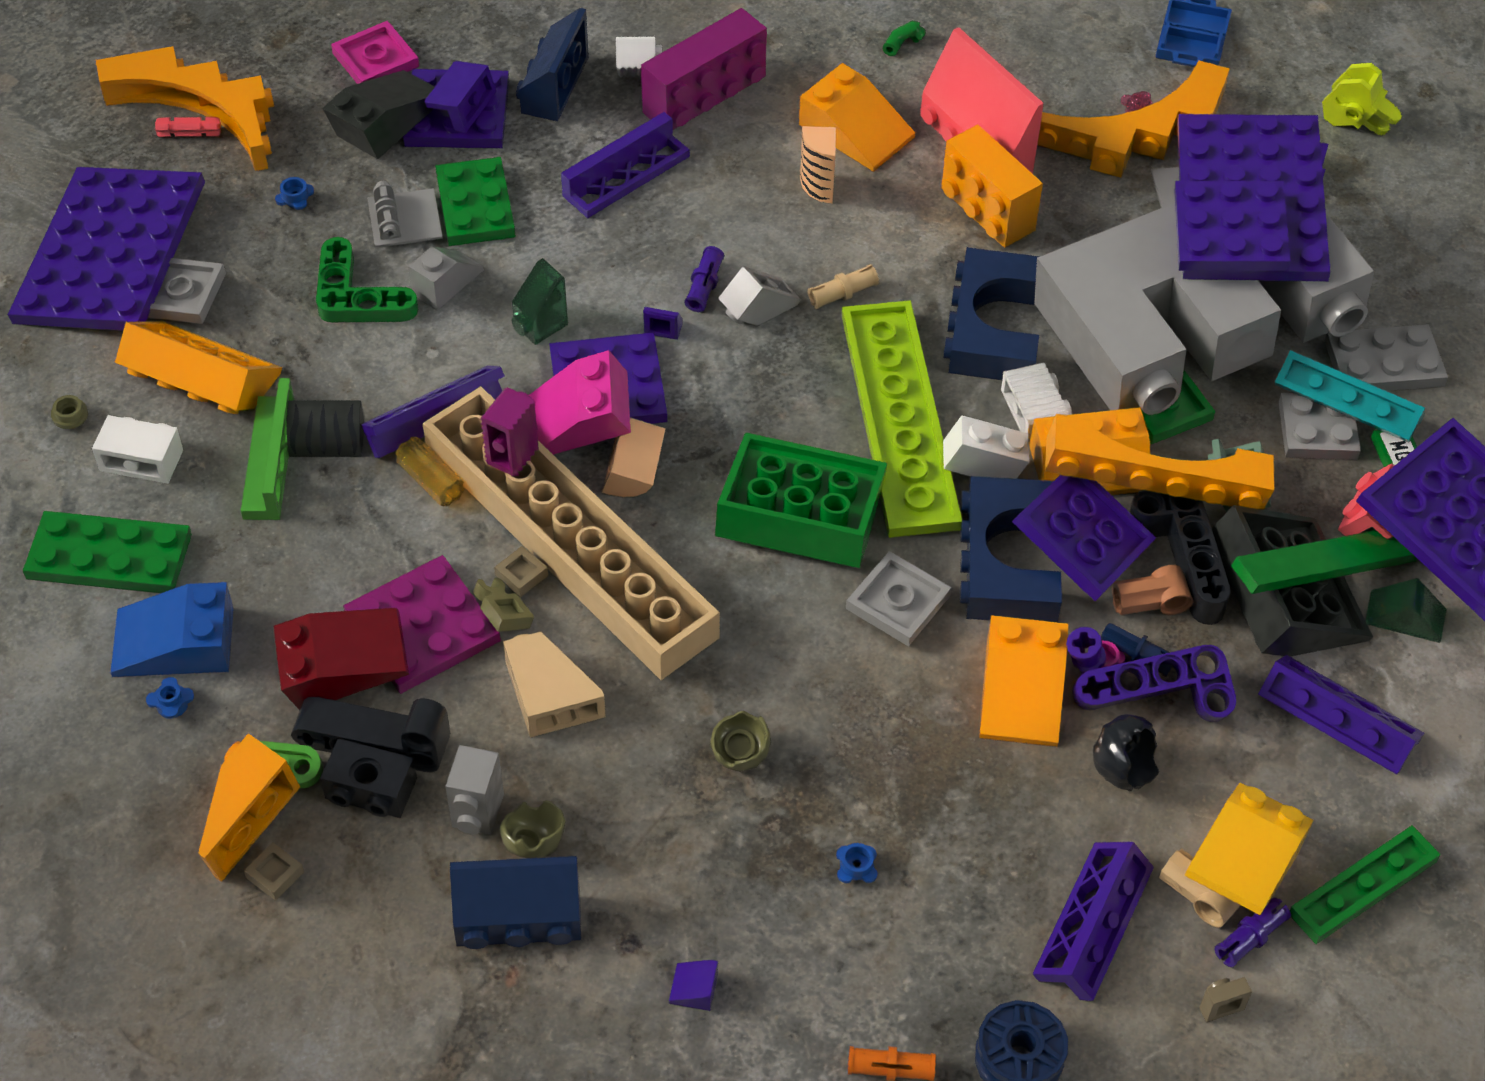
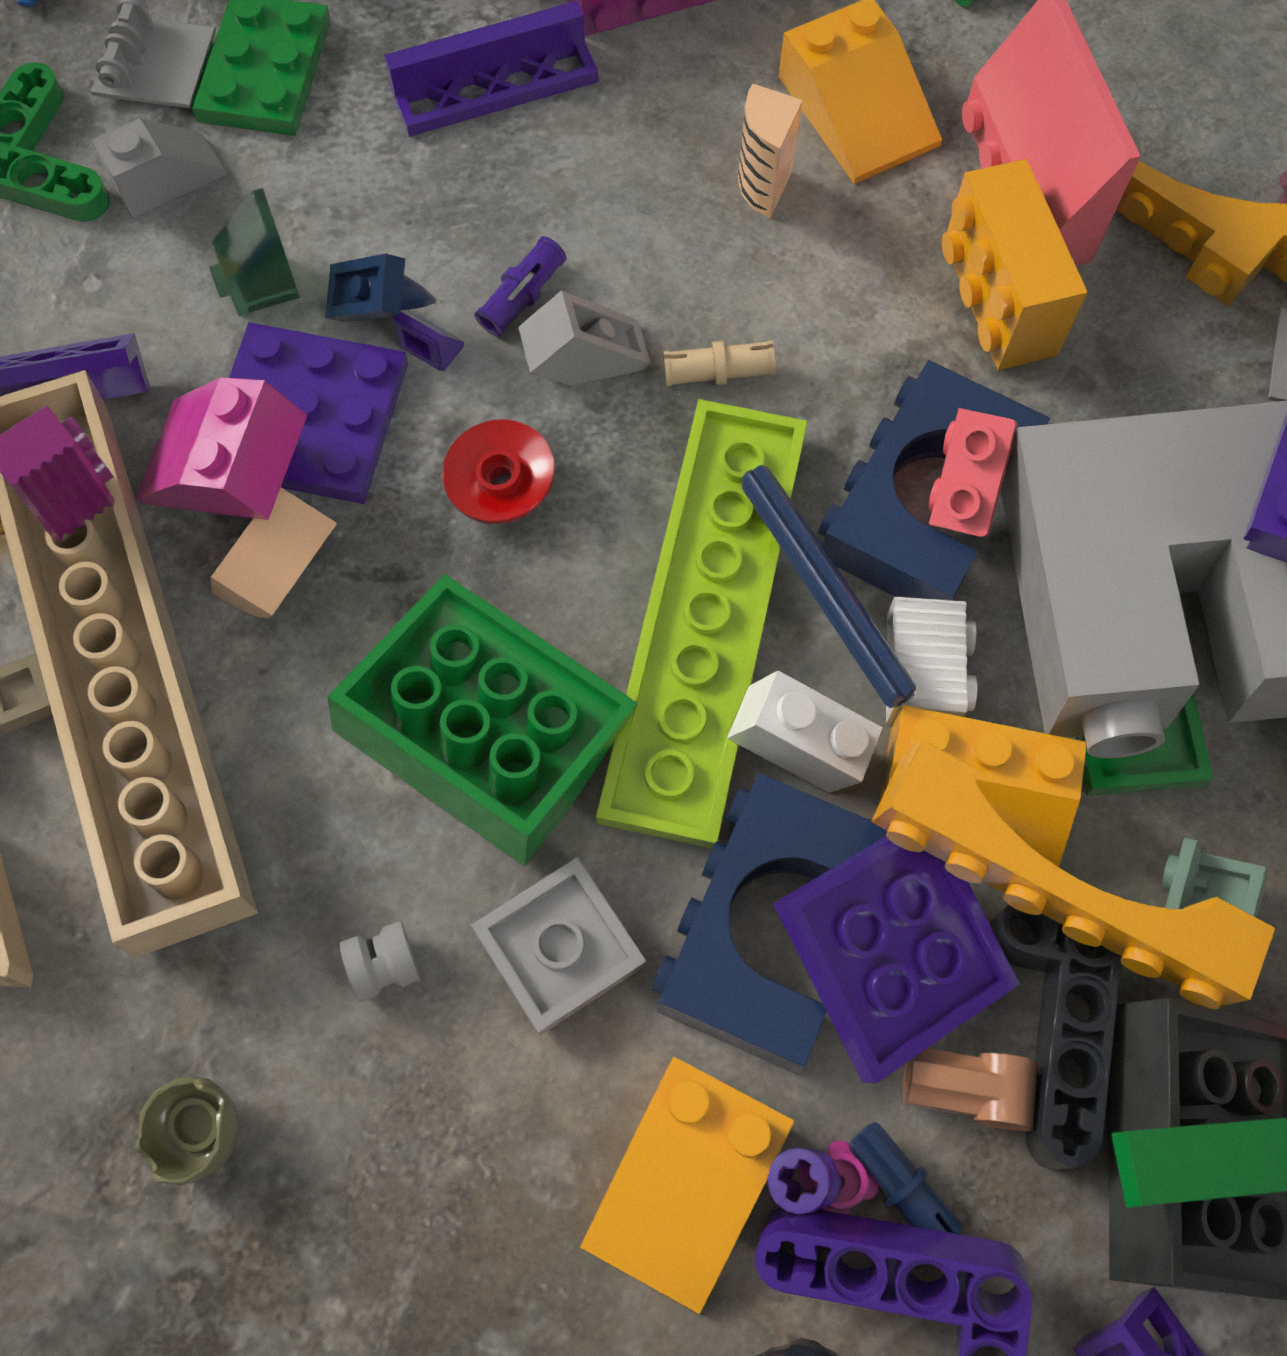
camera: 20 degrees right, 15 degrees up
(620, 301) = (372, 289): none -> dark blue tile
(743, 366) = (493, 451): none -> red dish
(804, 634) = (379, 961): none -> light grey wheel
(964, 374) = (829, 587): none -> dark blue axle
(1021, 293) = (973, 472): none -> coral bracket

